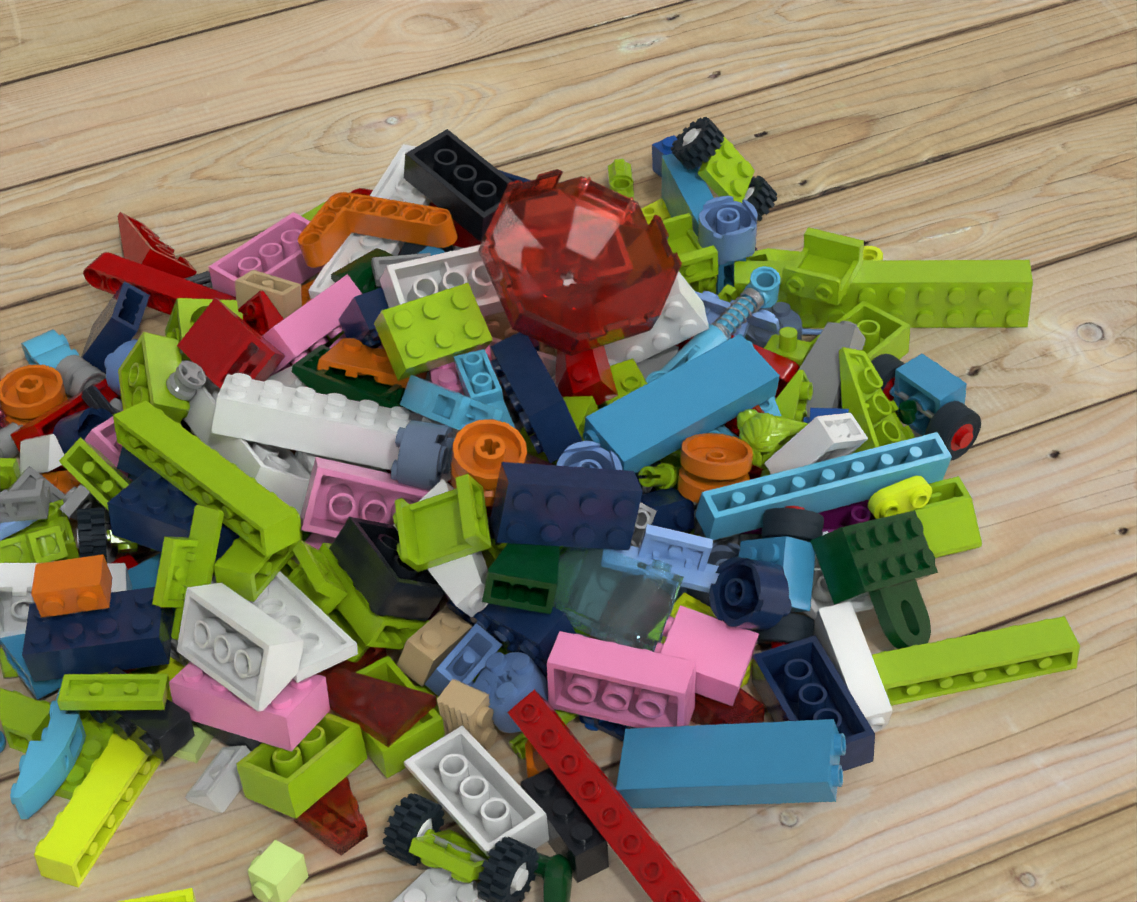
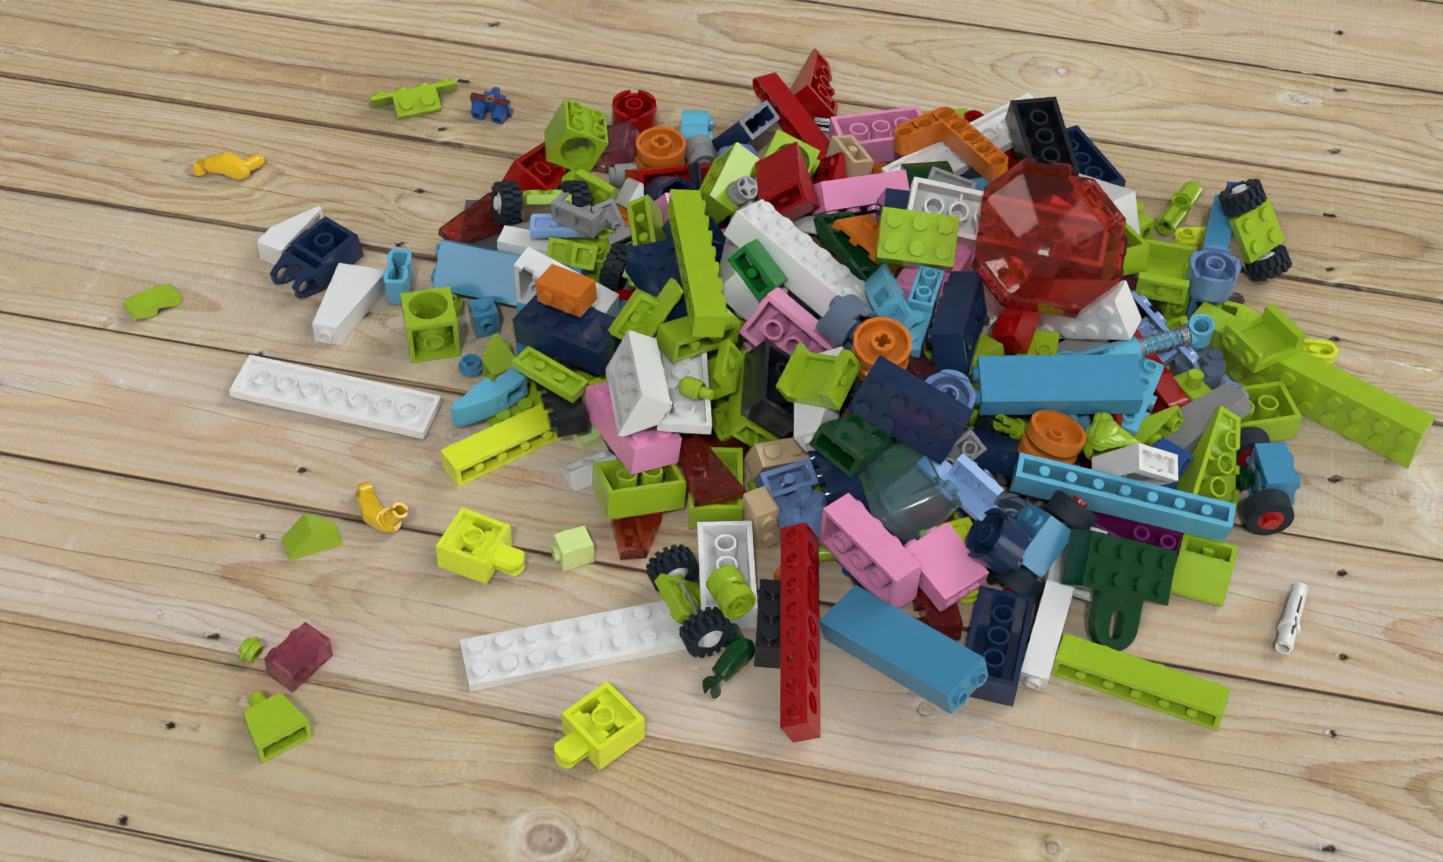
camera: 30 degrees right, 5 degrees up
(280, 449) = (757, 269): none -> green brick
(306, 614) = (694, 389): none -> lime cylinder
(506, 809) = (731, 592): none -> lime wheel
(900, 497) = (1175, 536): neon yellow plate -> none
(1056, 527) = (1290, 626): none -> white pin

